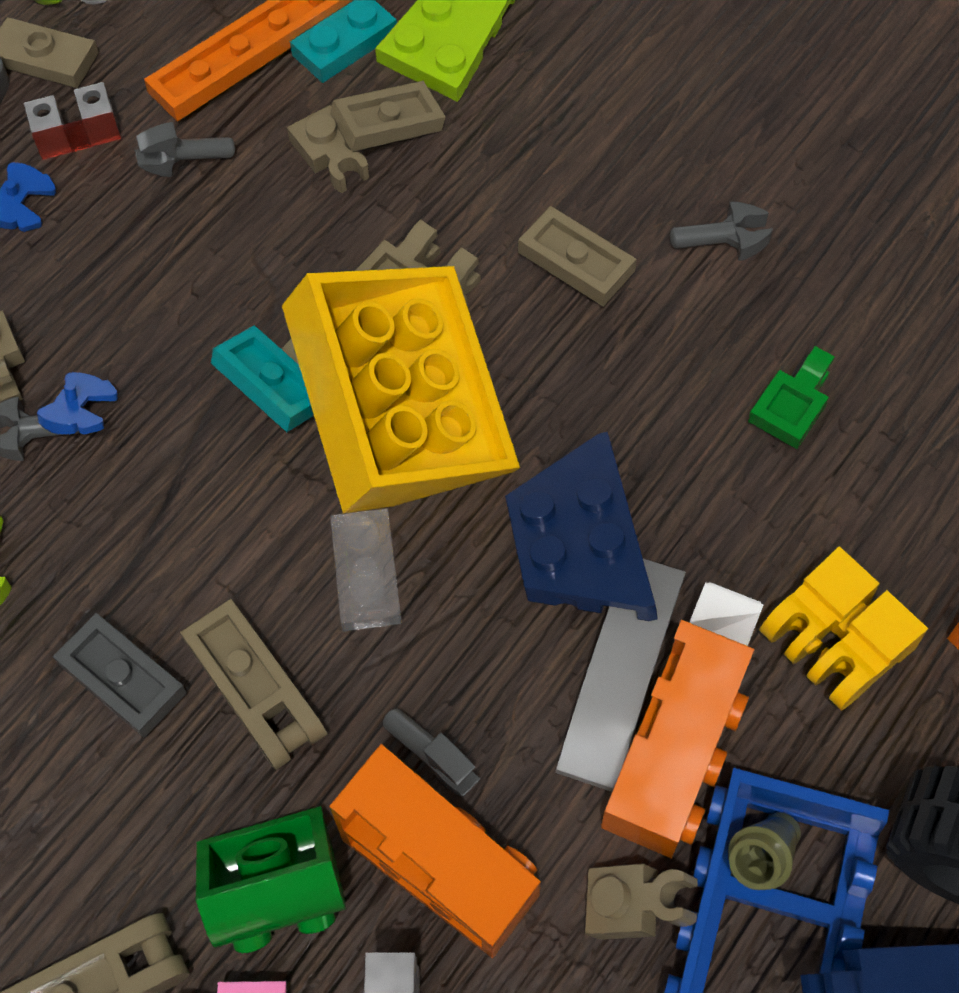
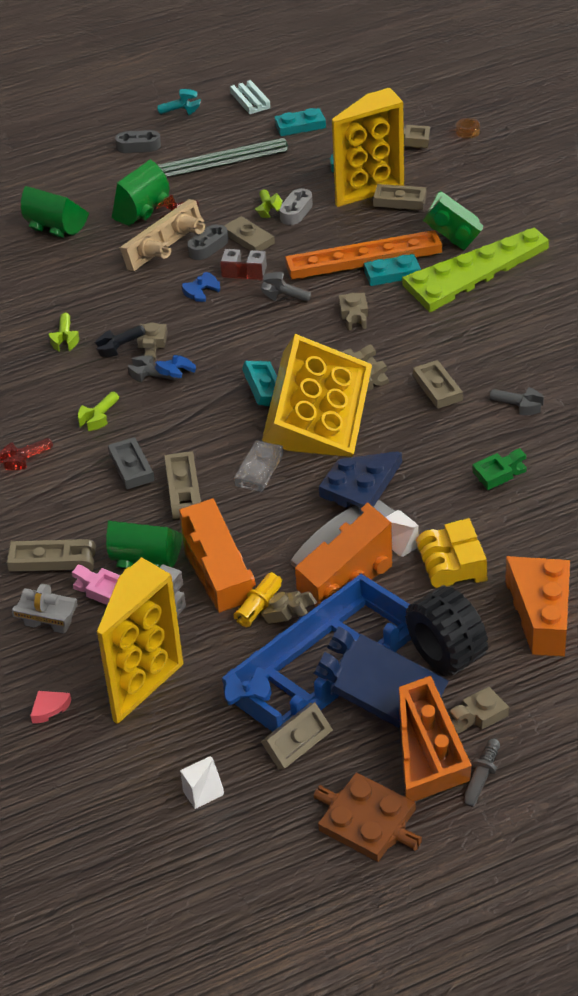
camera: 30 degrees right, 20 degrees down
(387, 115) = (388, 304): dark tan plate -> none
(443, 757) = (242, 531): dark grey bar -> none
(561, 903) = (258, 599): none -> yellow axle
(764, 852) = (354, 607): olive cone -> none

